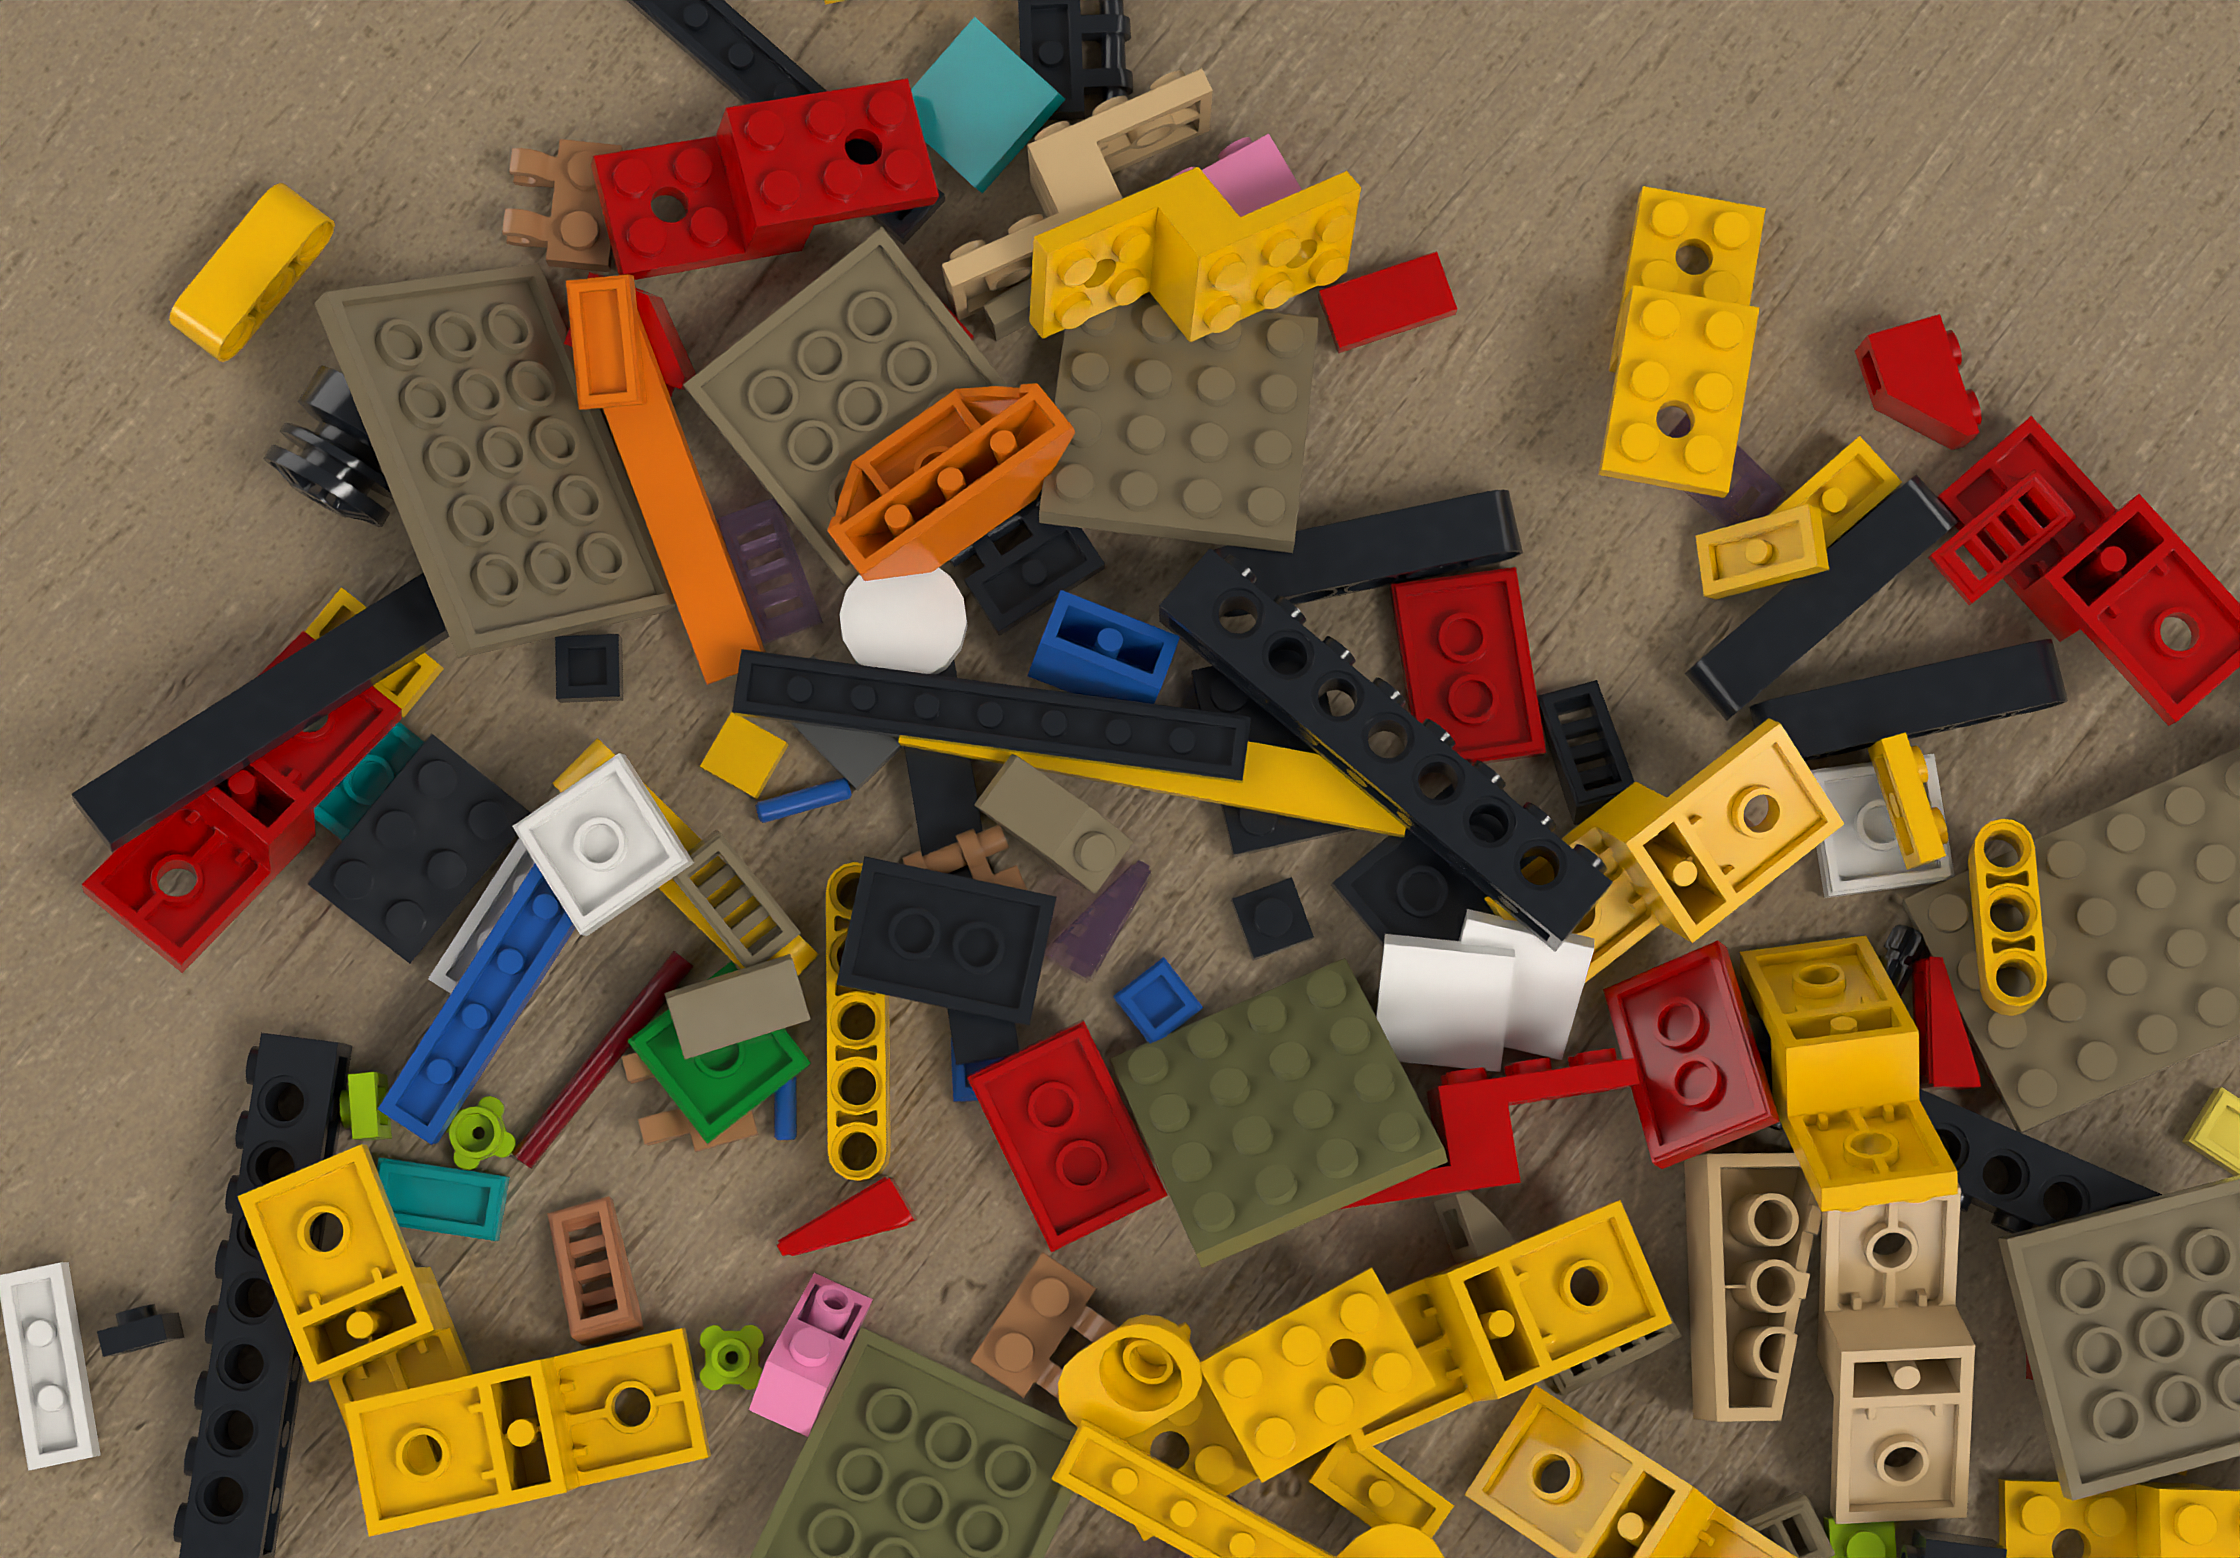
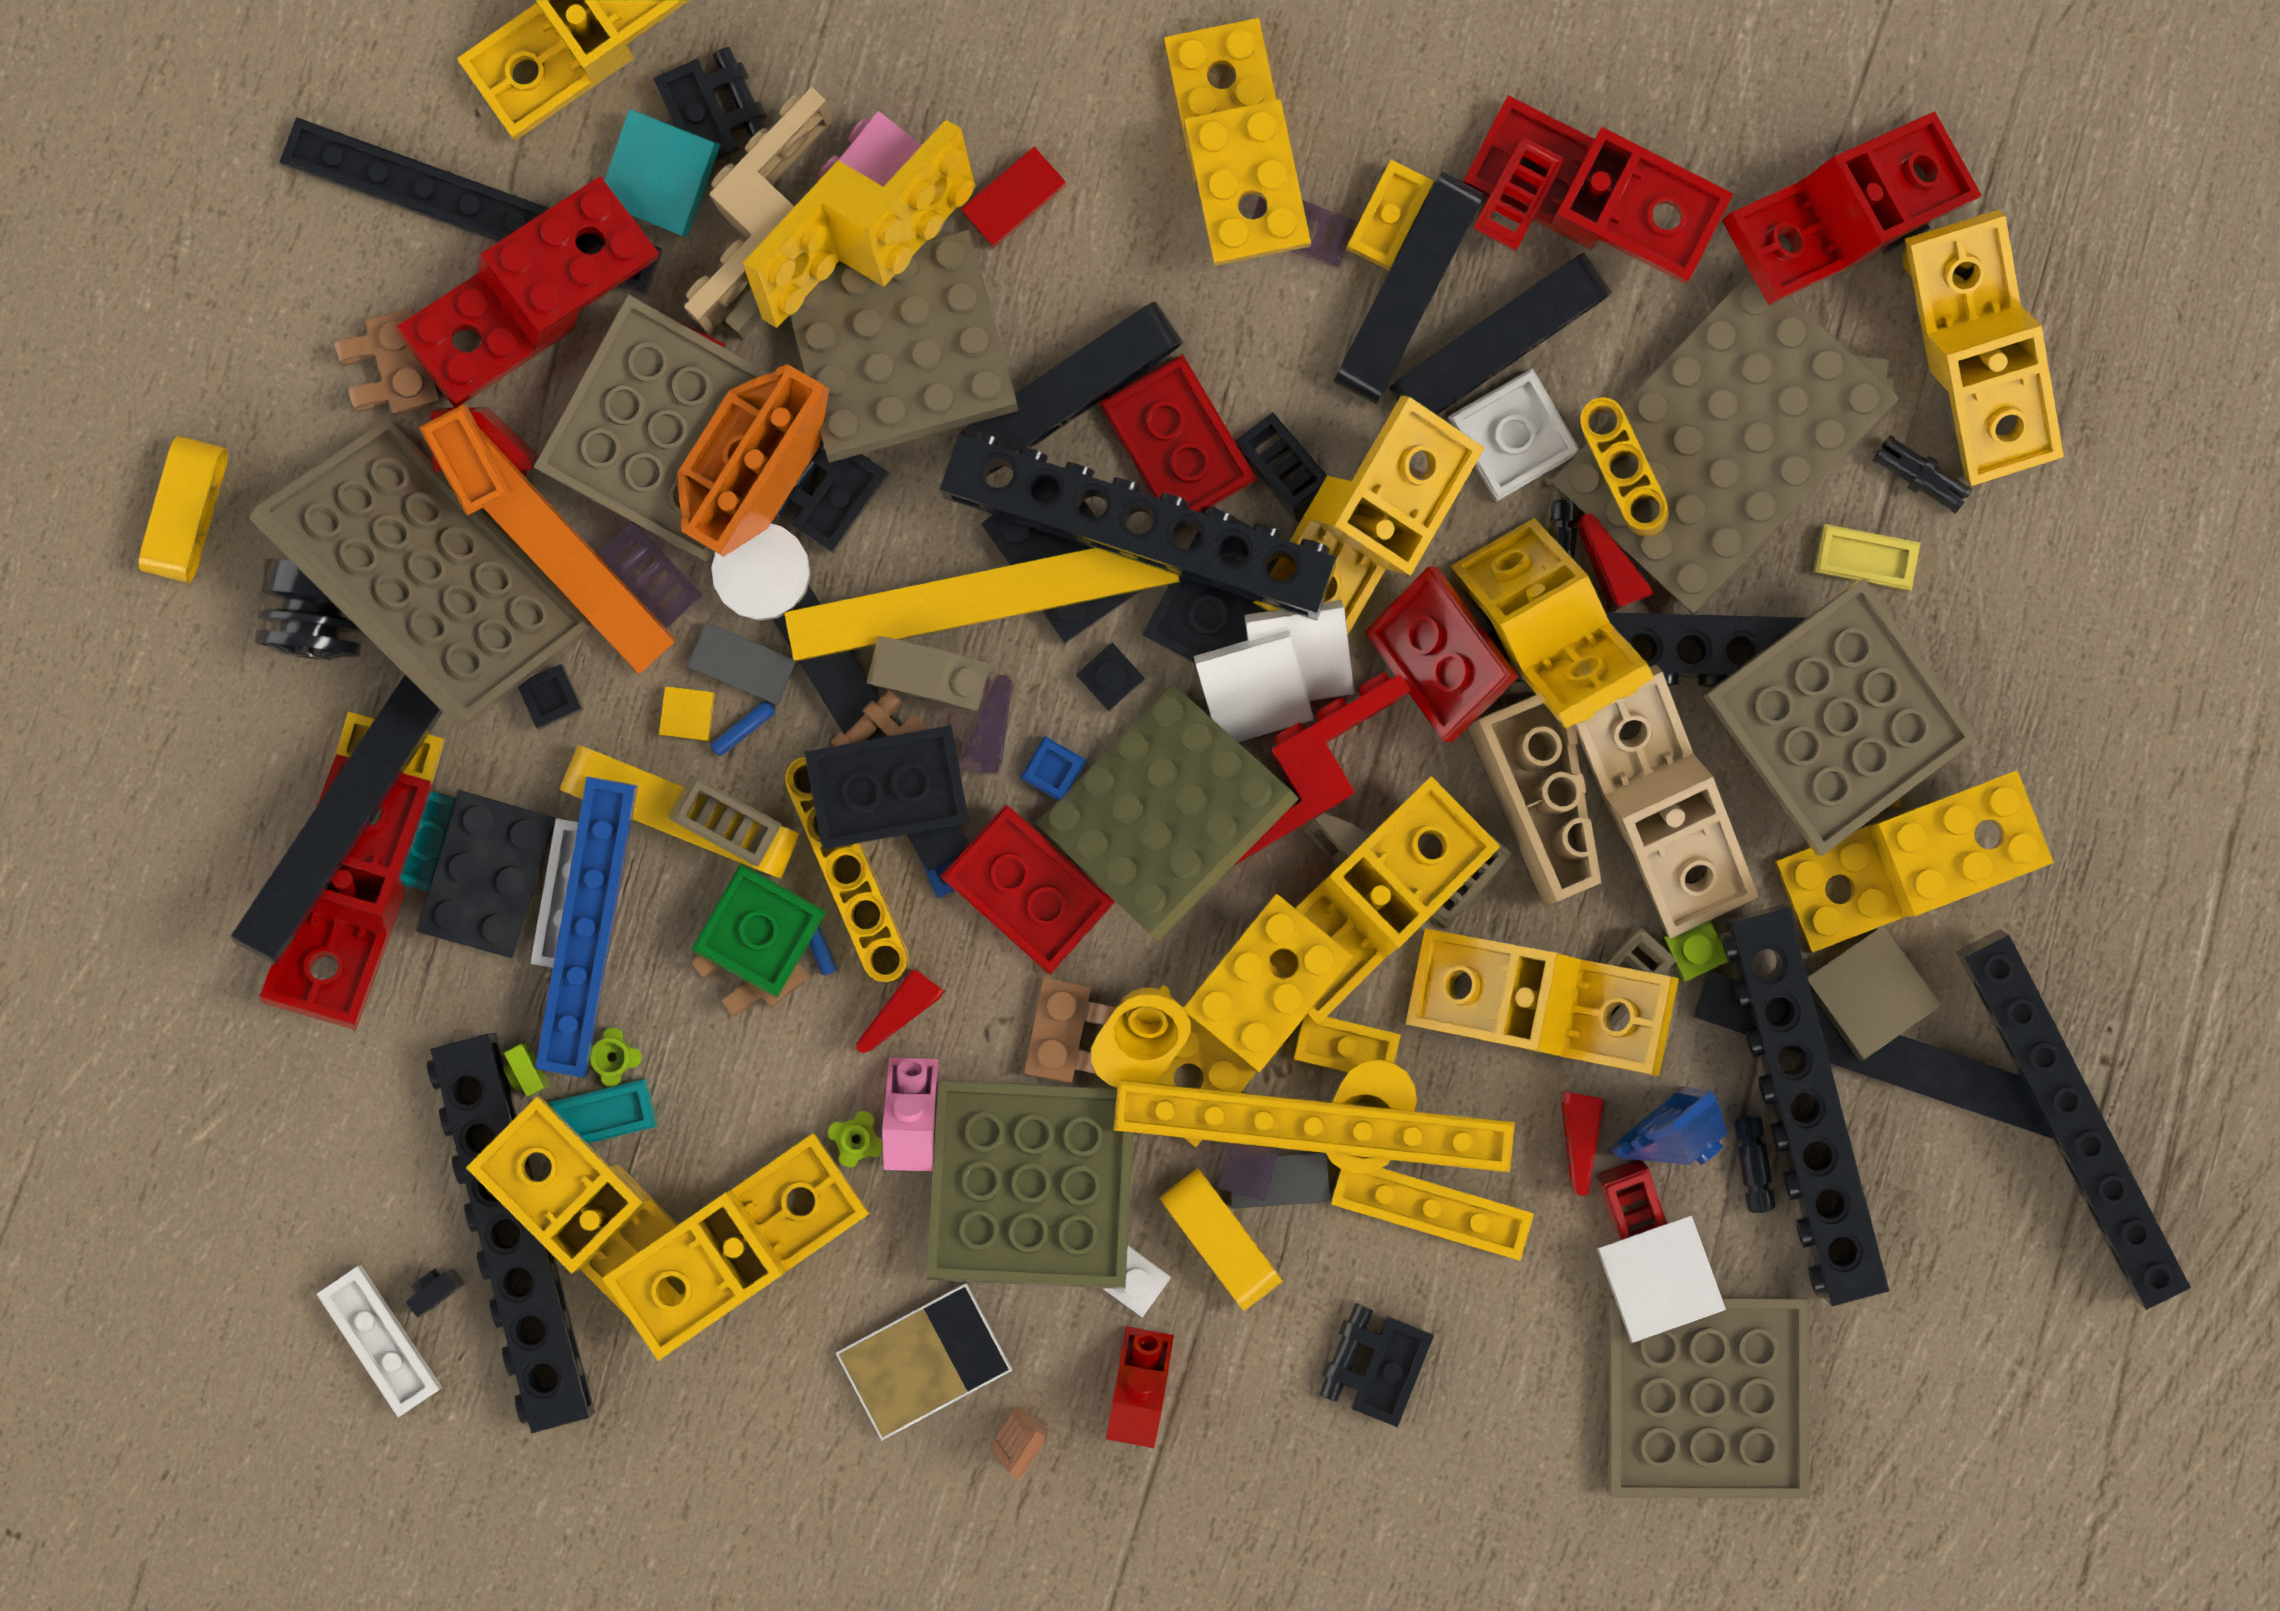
camera: 20 degrees left, 5 degrees up
(601, 1060) = (677, 969): dark red bar -> none
(603, 844) = (616, 818): white tile -> none
(609, 1325) = (761, 1151): nougat slope -> none
(737, 1006) = (758, 893): dark tan tile -> none
(992, 716) = (852, 615): black tile -> none
(1102, 652) = (914, 539): blue brick -> none
(1762, 552) = (1353, 273): yellow plate -> none
(1901, 777) = (1513, 394): yellow plate -> none
(1918, 383) = (1417, 102): red slope -> none

